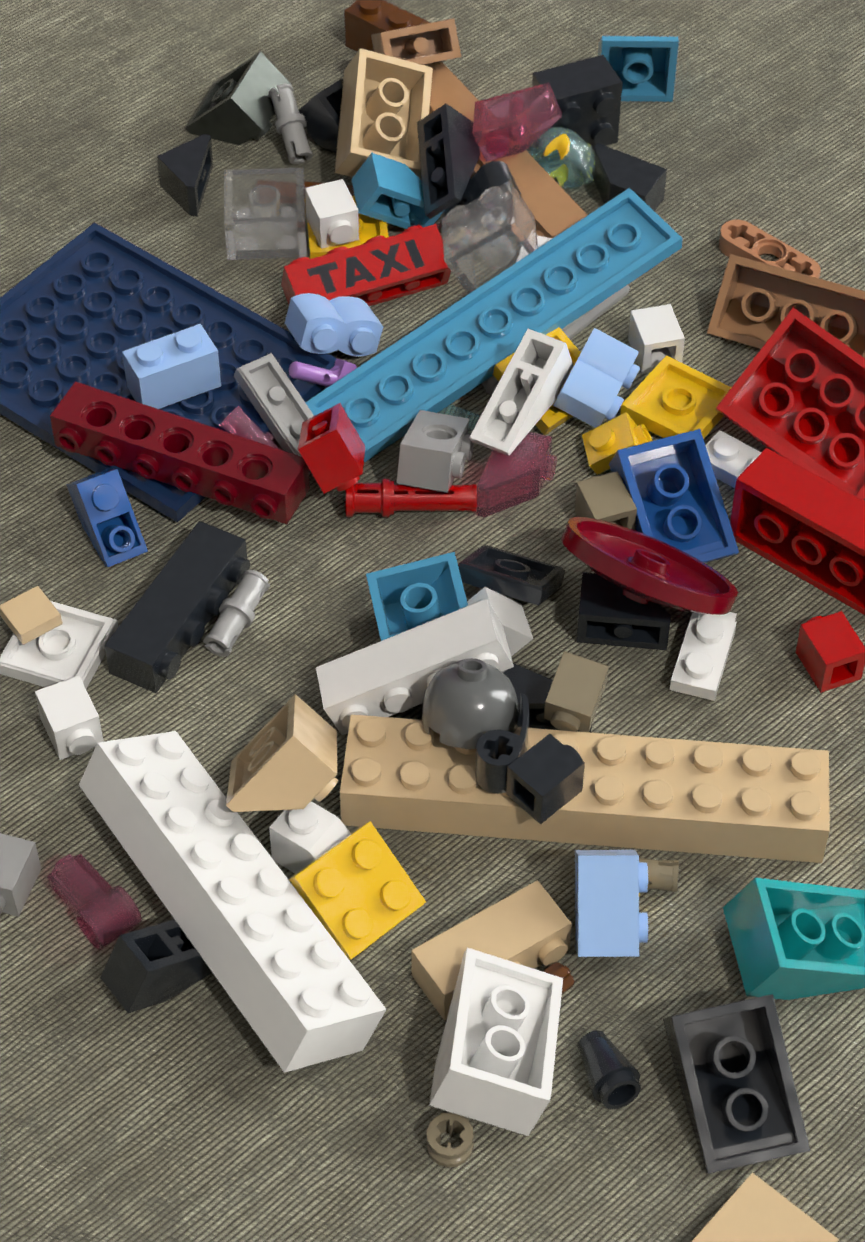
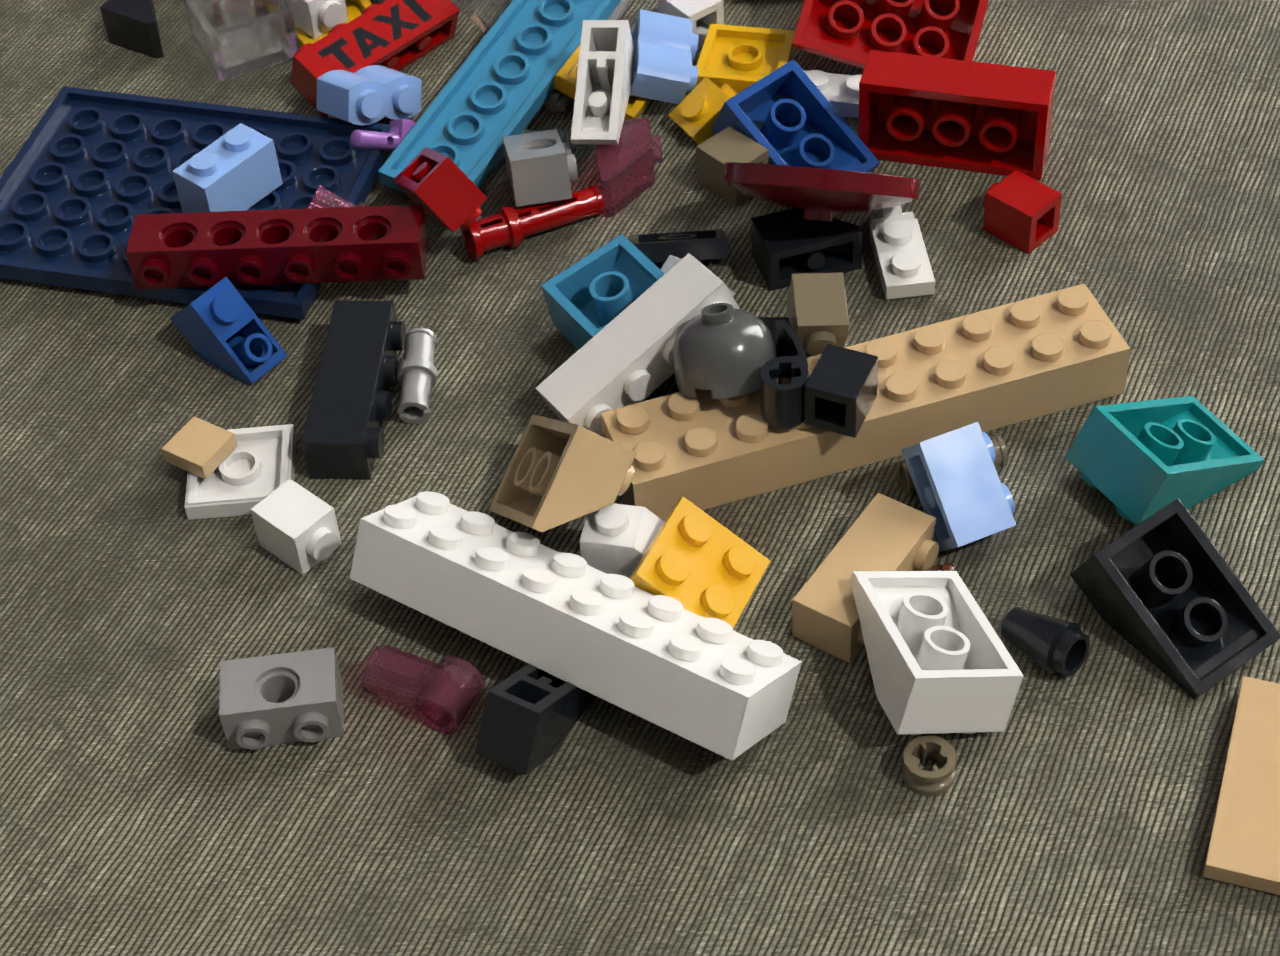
camera: 20 degrees left, 5 degrees down
(275, 400) = (351, 173): light grey tile -> none

